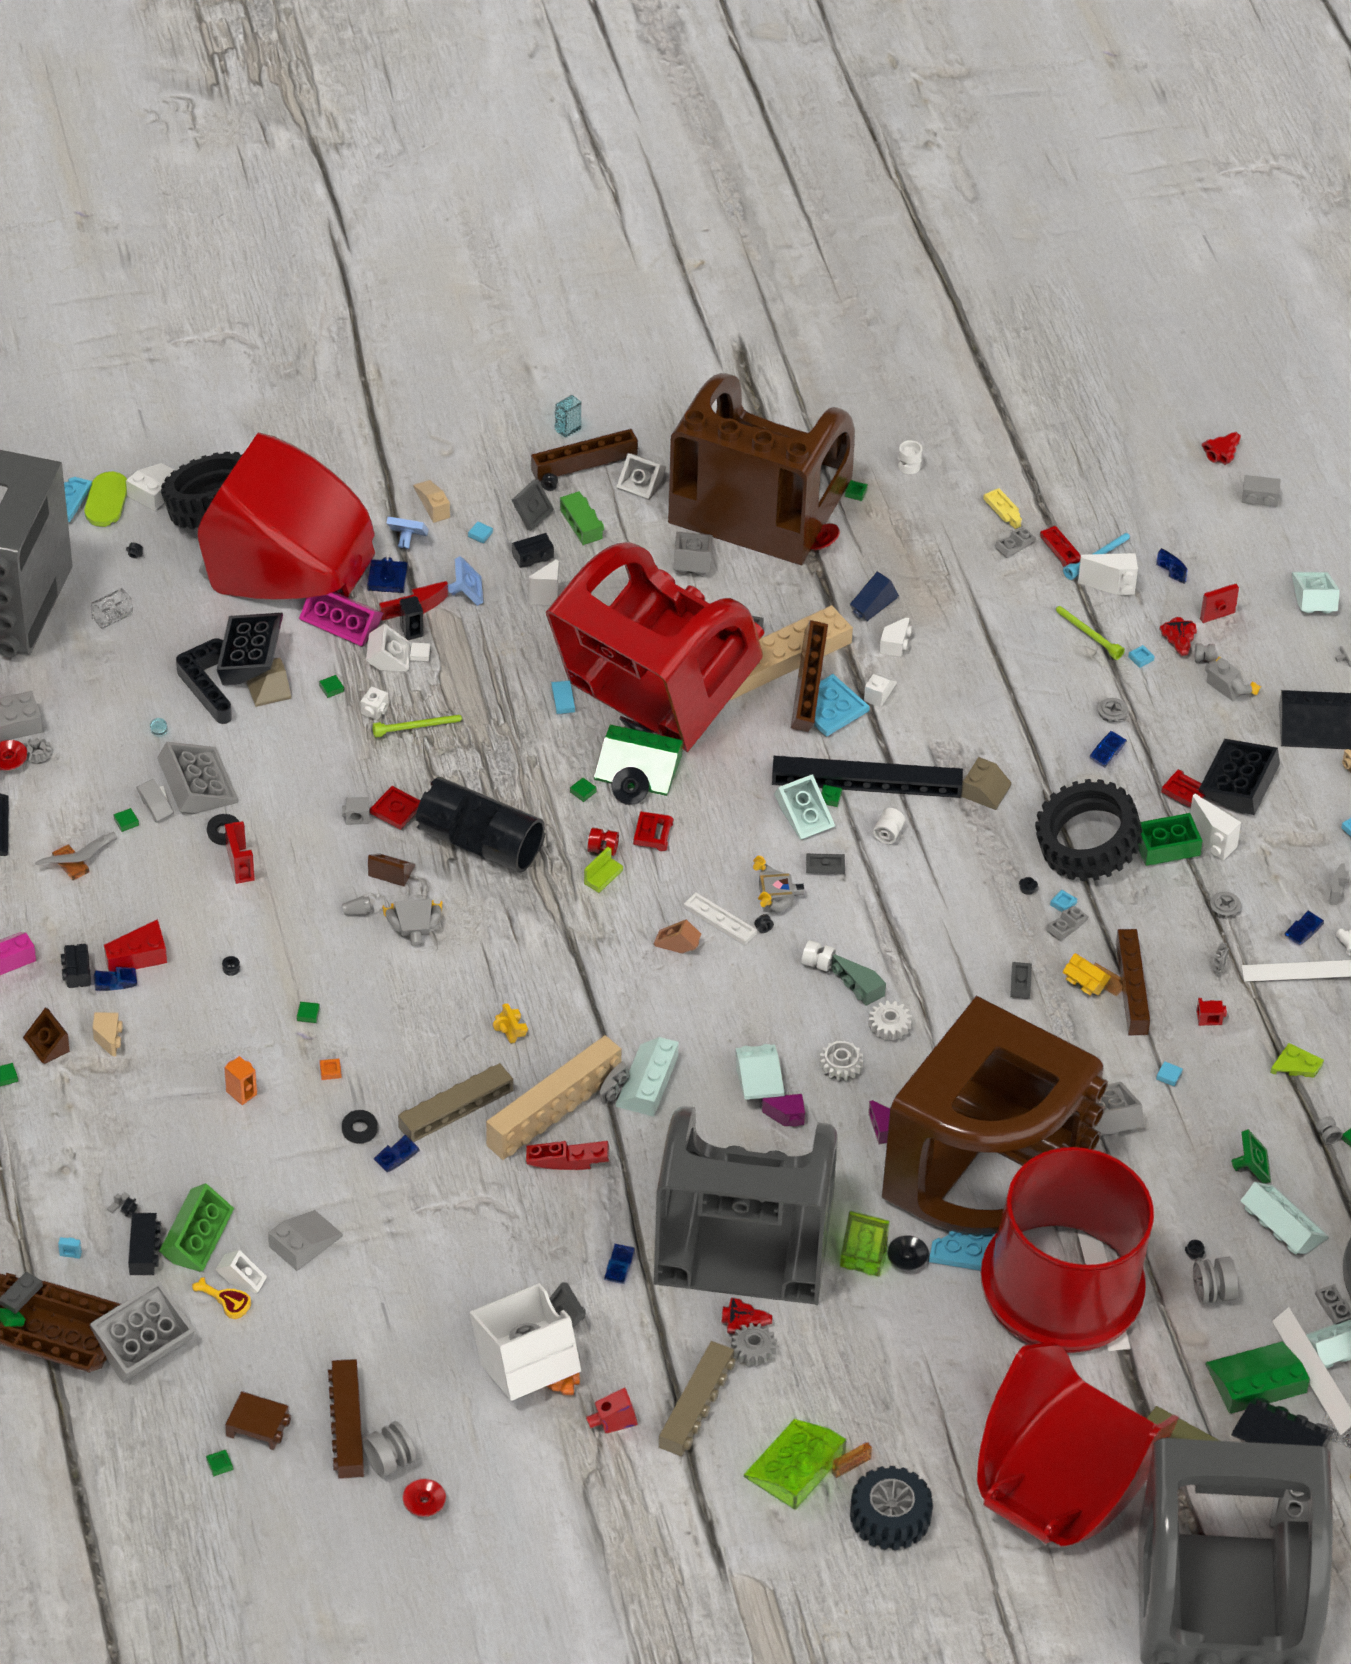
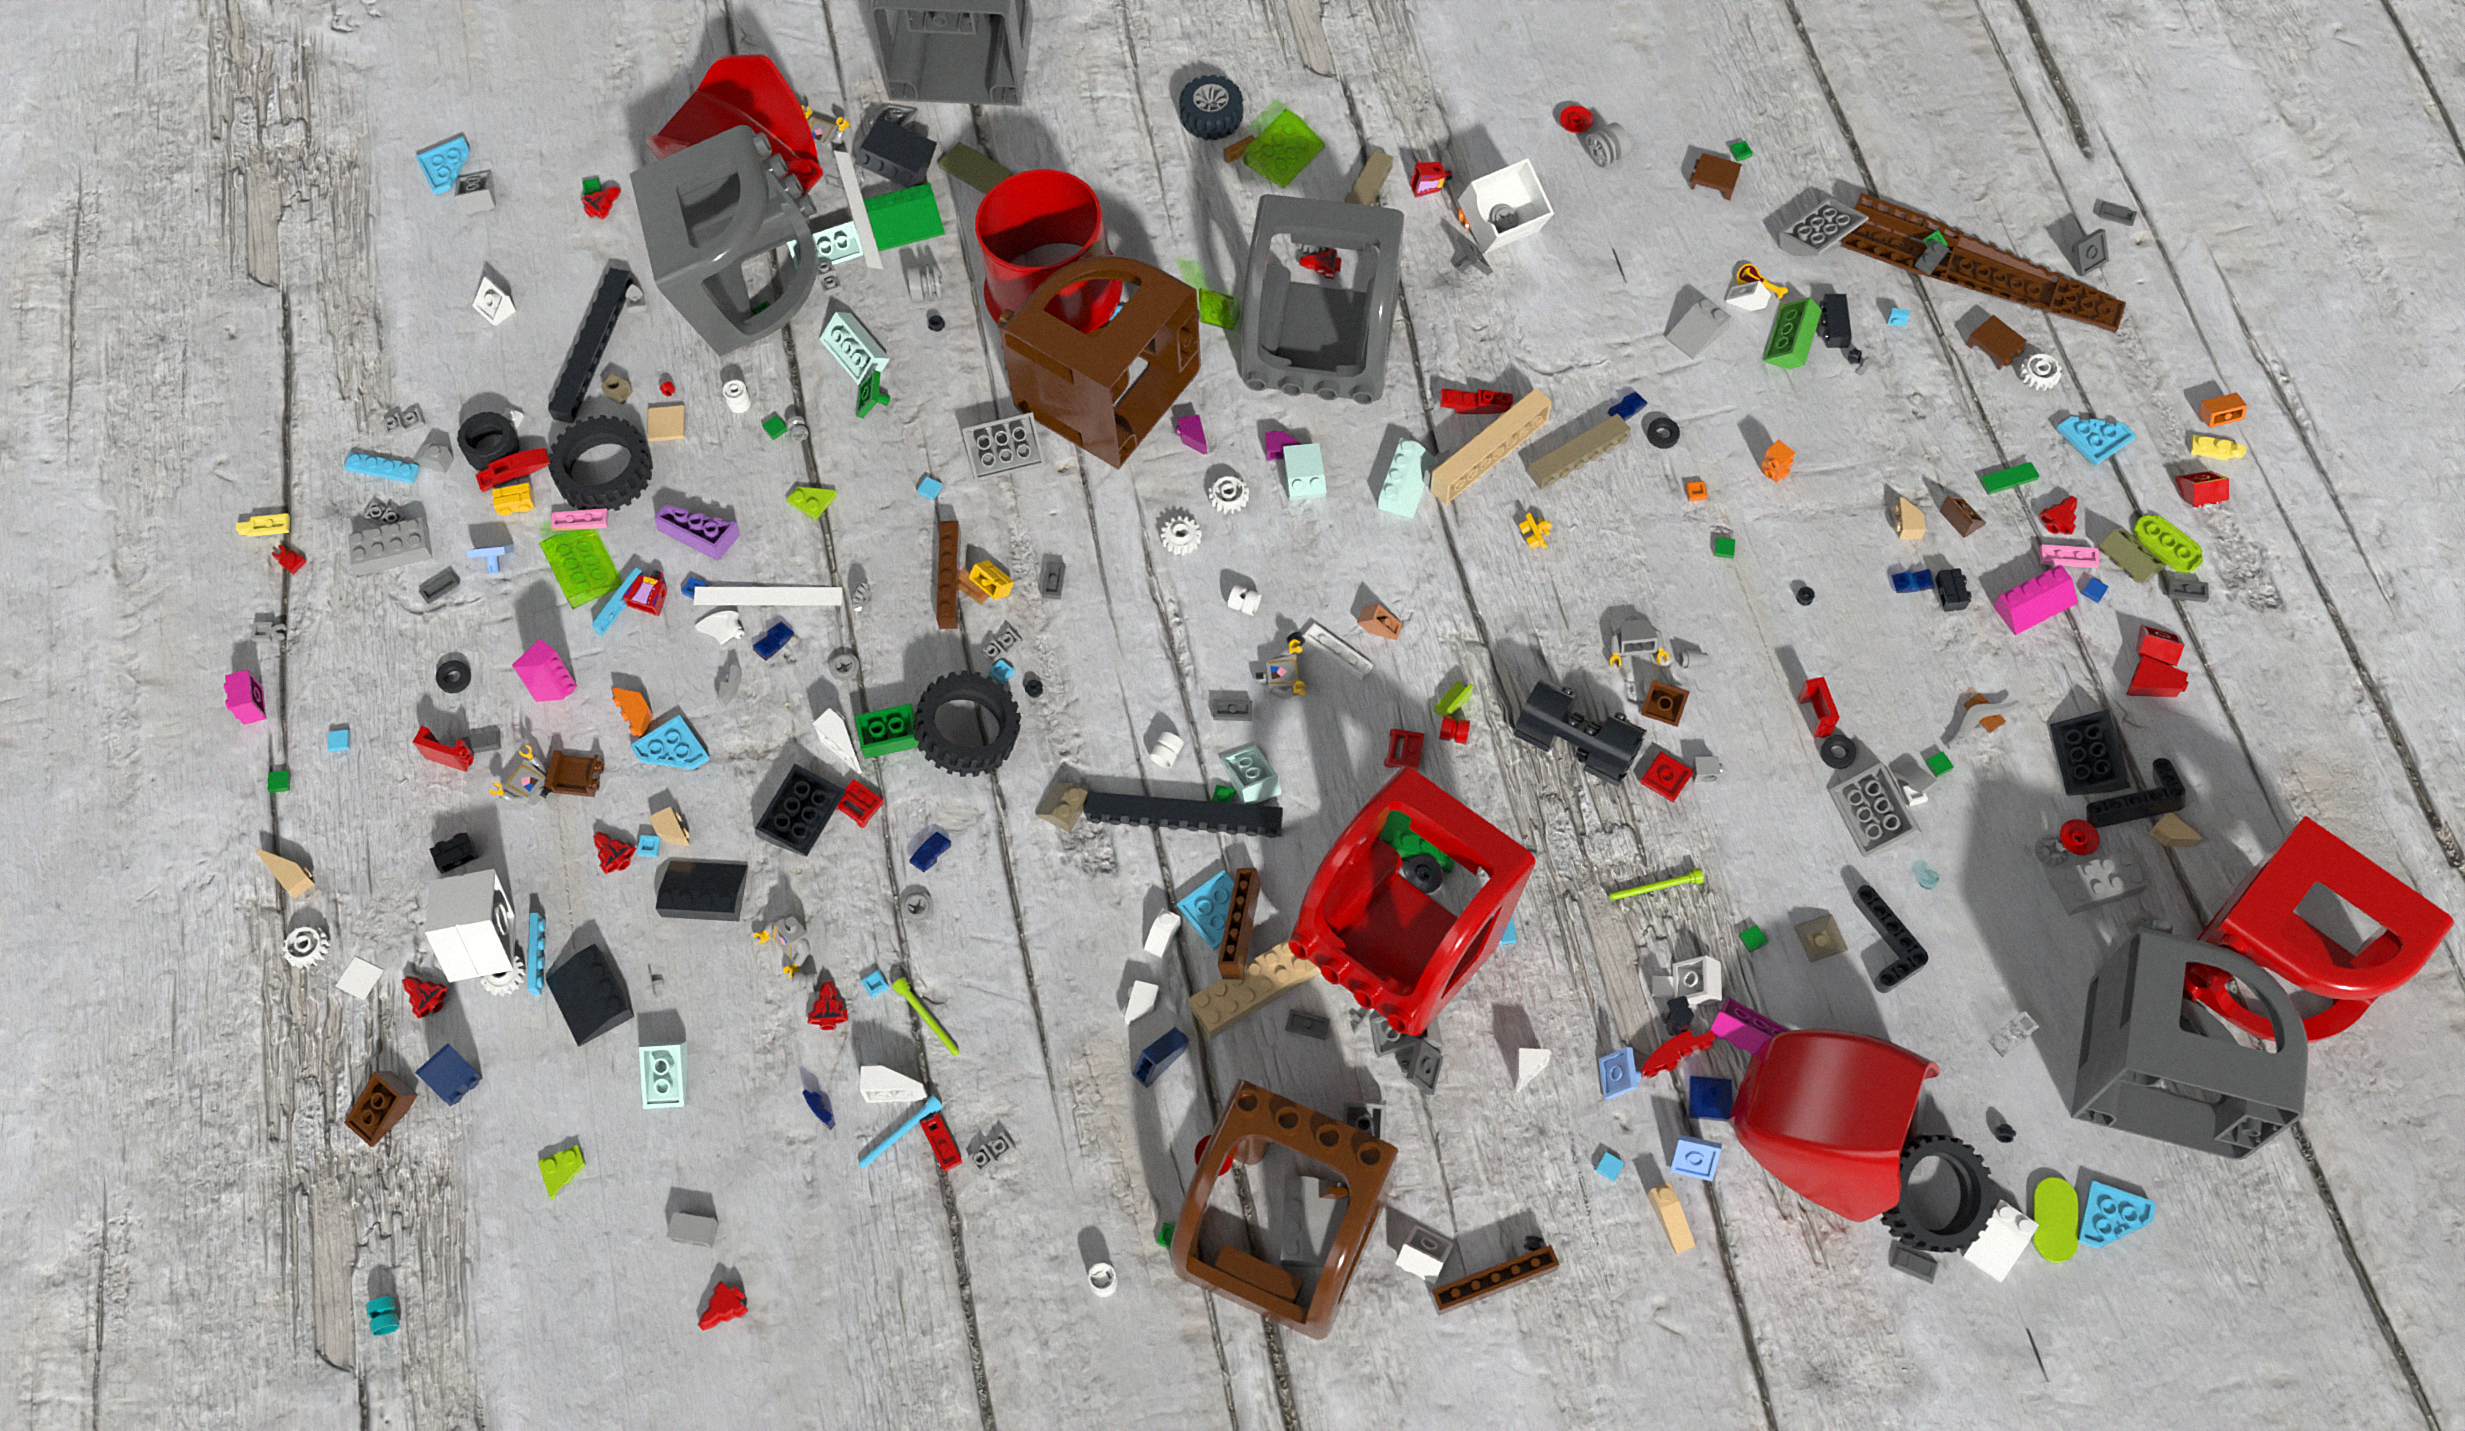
camera: 175 degrees left, 15 degrees up
(137, 948) = (1898, 604): red wedge -> none
(248, 647) = (1852, 969): black slope -> none
(347, 1419) = (1644, 180): reddish brown brick -> none
(374, 703) = (1704, 907): white brick -> none
(532, 504) = (1553, 1194): dark grey tile -> none
(533, 550) = (1547, 1131): black brick -> none
(568, 416) = (1517, 1342): clear light blue brick -> none
(581, 518) = (1493, 1183): bright green brick -> none
(583, 789) = (1477, 802): green tile -> none
(619, 1264) = (1427, 310): clear blue slope -> none
(861, 980) = (1203, 576): sand green slope -> none
(1003, 507) = (1000, 1205): light yellow hinge -> none
(1060, 1450) = (1057, 118): red windscreen -> none
(1210, 1012) = (880, 544): red brick -> none
(1219, 603) = (776, 1041): red plate -> none

